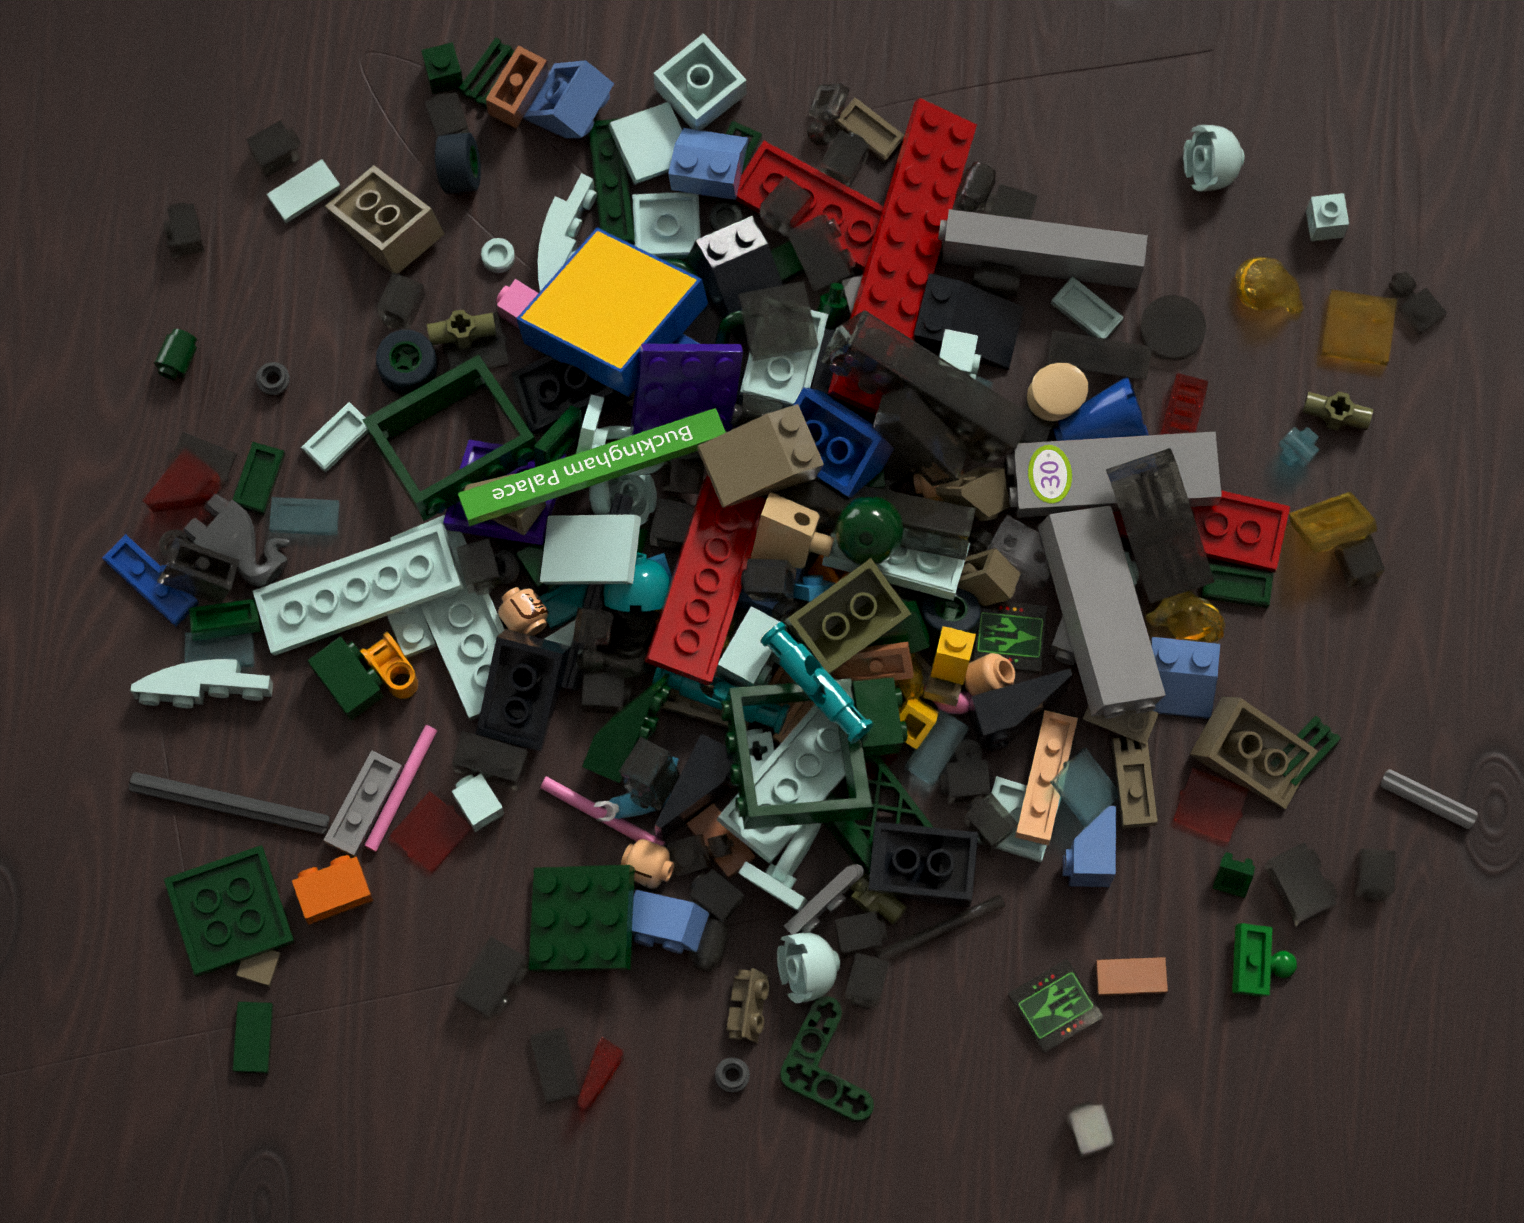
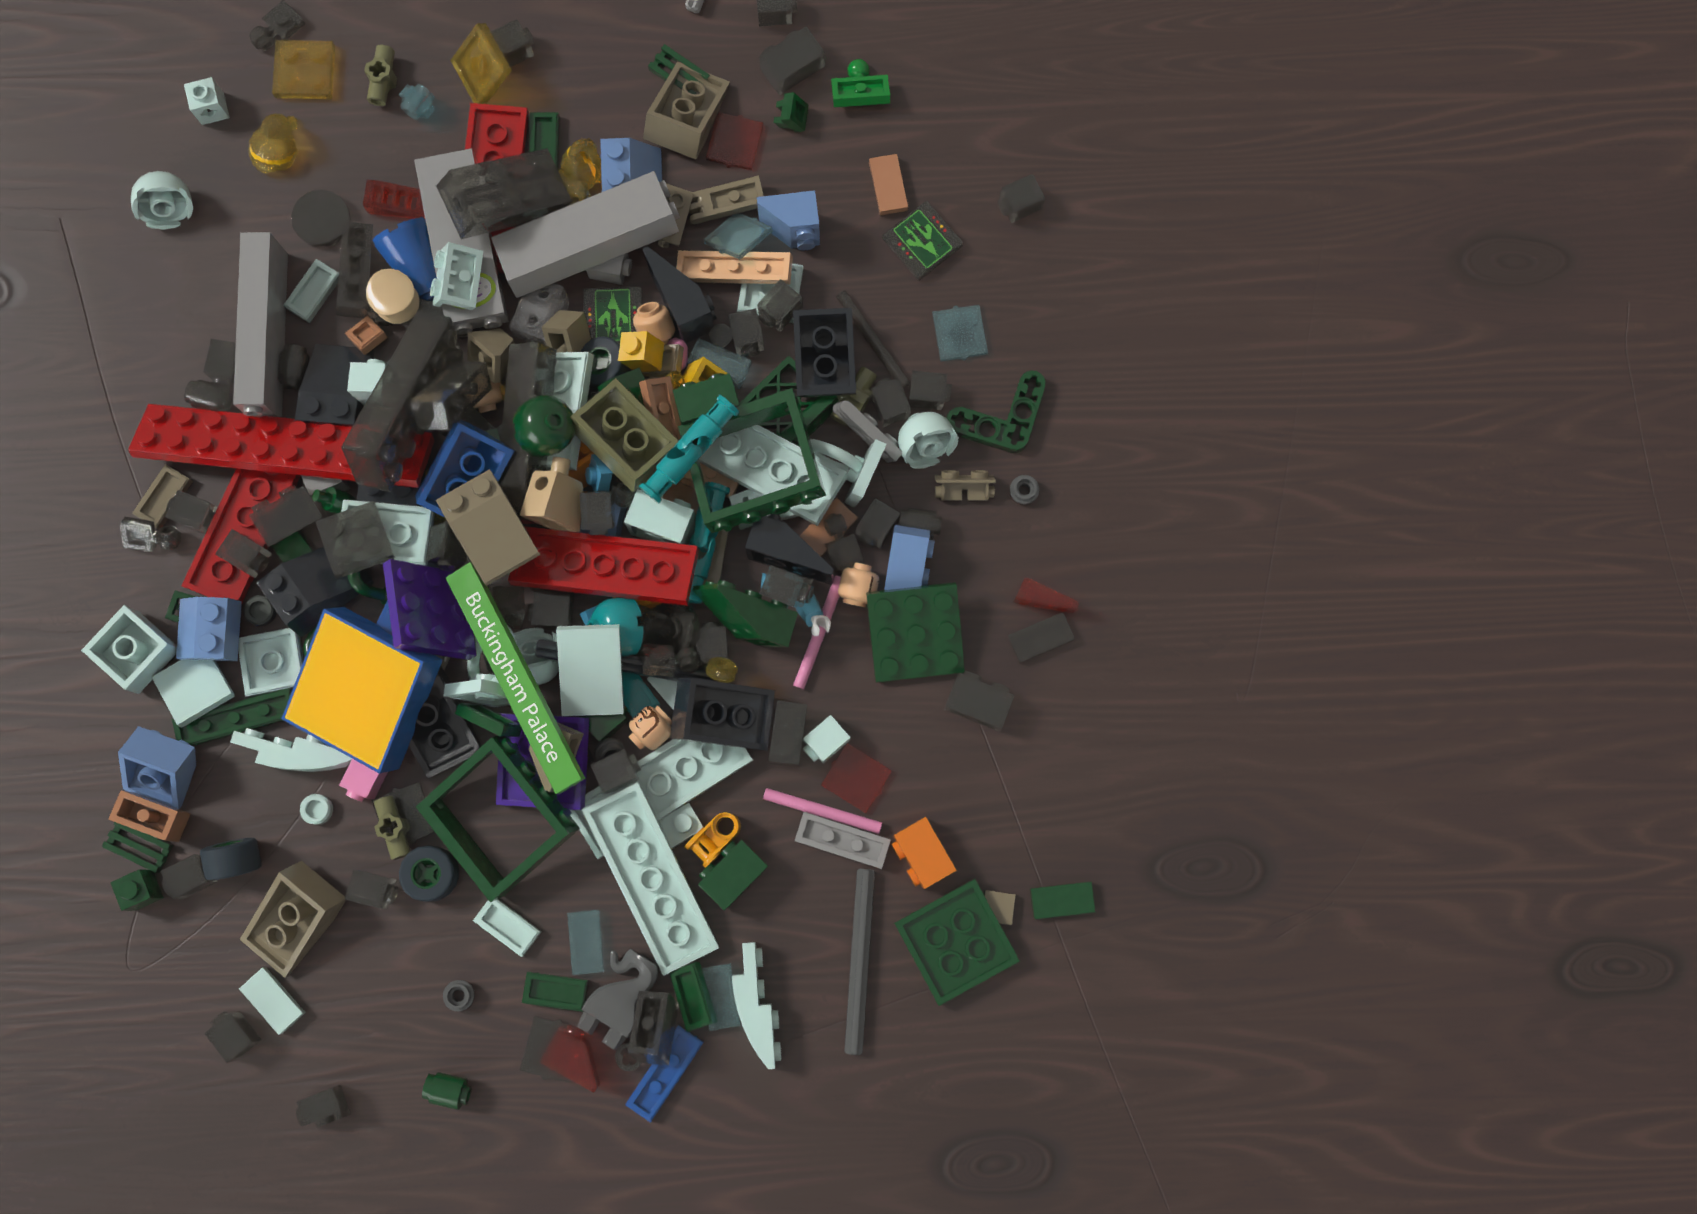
camera: 100 degrees left, 5 degrees up
(570, 693) = (721, 669): none -> clear yellow tile
(935, 1032) = (959, 333): none -> clear light blue piece
(1024, 361) = (366, 335): none -> nougat tile
(1063, 460) = (457, 276): none -> light aqua bracket

